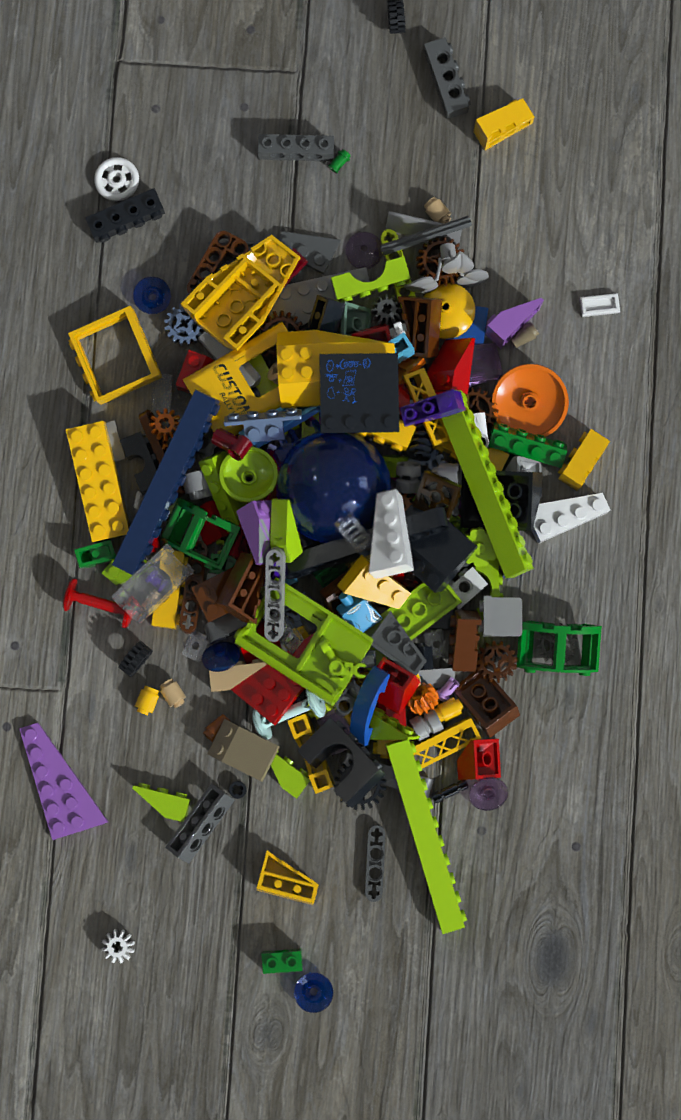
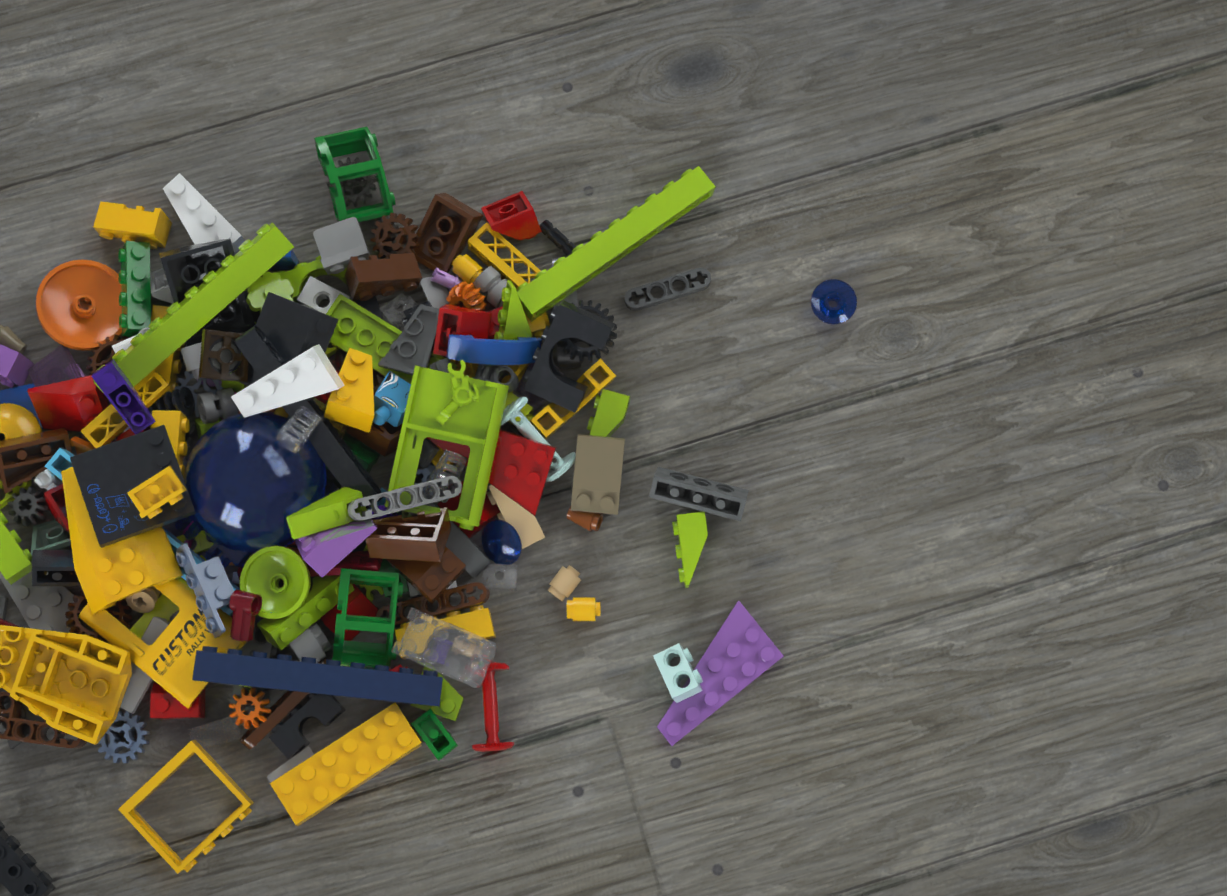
camera: 110 degrees left, 5 degrees down
(69, 749) = (674, 675): none -> light aqua brick
(113, 939) = (877, 541): white gear -> none
(135, 658) = (540, 639): black tyre -> none
(151, 286) = (86, 791): clear blue dish -> none
(237, 796) = (638, 469): black bush -> none
(282, 961) = (813, 347): green brick -> none
(285, 881) = (725, 375): yellow wedge -> none
(342, 409) = (156, 492): none -> yellow bracket
(489, 799) = (544, 194): clear purple dish -> none

